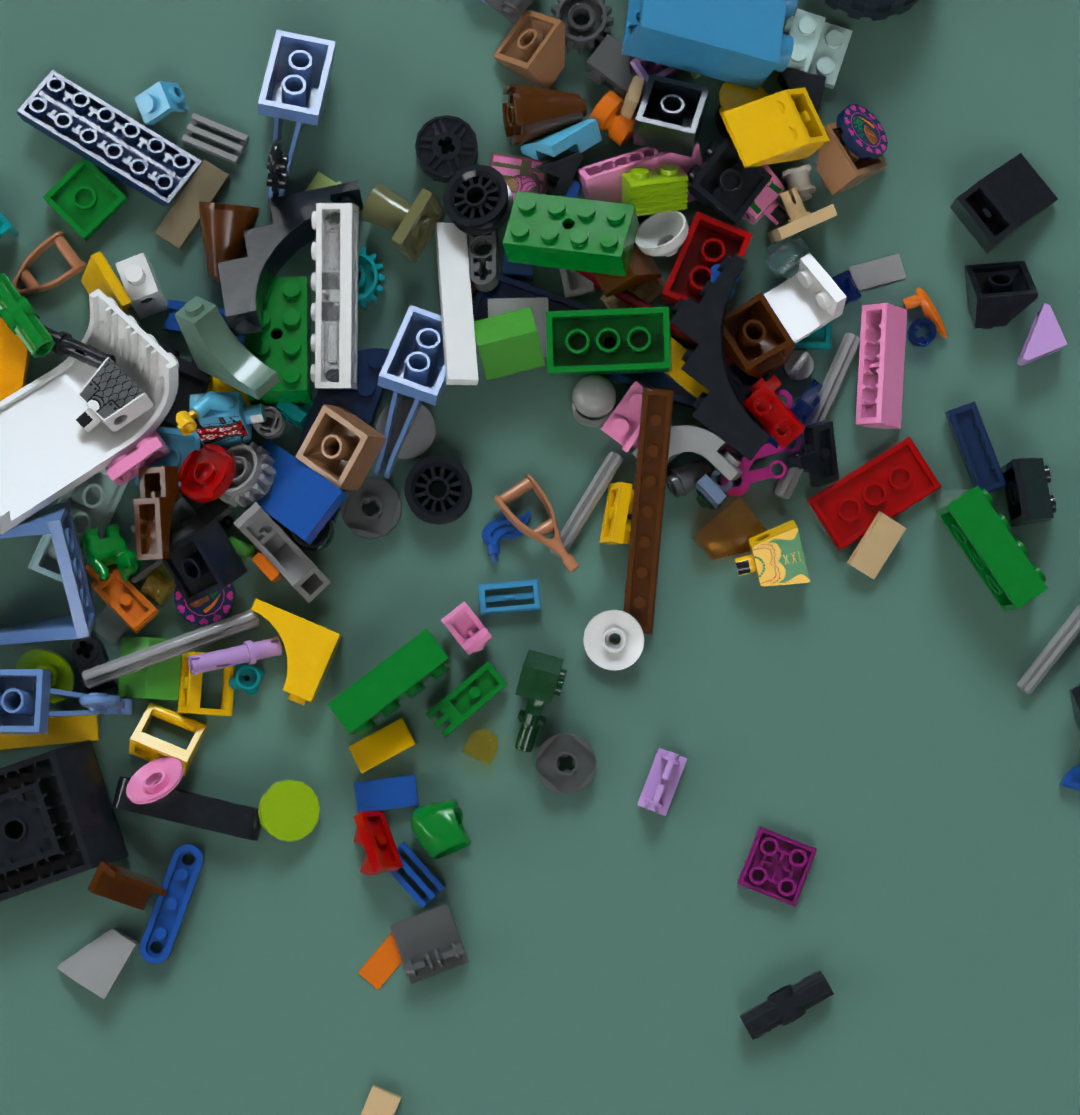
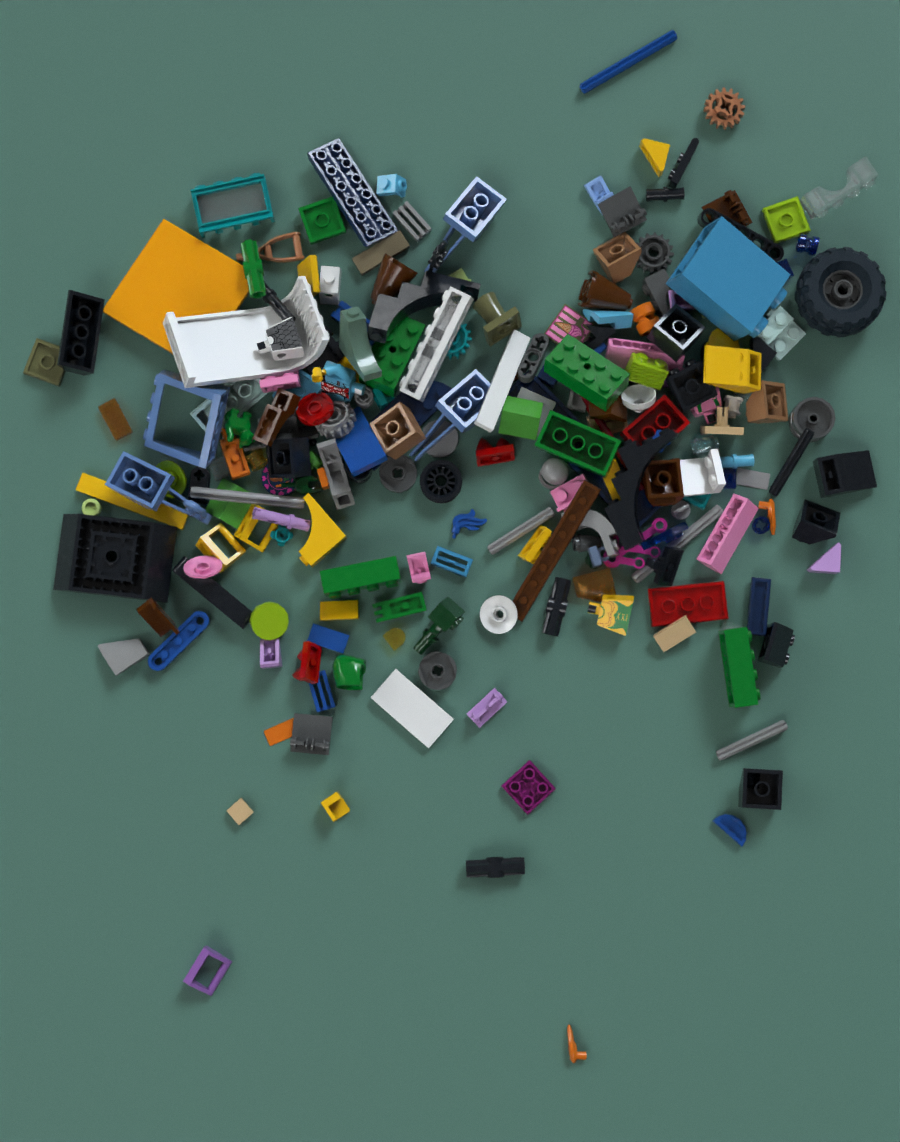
camera: 25 degrees right, 0 degrees up
(240, 593) = (300, 485): none -> dark green hand
(313, 857) = (270, 653): none -> lavender slope
(439, 133) = (542, 279): black wheel -> none
(487, 420) = (492, 455): none -> red tile
(493, 208) = (543, 338): black wheel -> none
(514, 1031) = (335, 806): none -> yellow panel
(542, 530) = (489, 532): nougat piece -> none
(556, 835) = (412, 708): none -> white tile
(632, 96) = (659, 311): tan tile -> none
(690, 588) = (556, 606): none -> black piece
(773, 412) = (651, 528): red bracket -> none
(843, 258) = (737, 461): none -> medium azure pin
(862, 132) = (782, 394): dark blue tile -> none
(922, 221) = (791, 462): none -> black axle
(930, 133) = (819, 411): none -> dark grey wheel

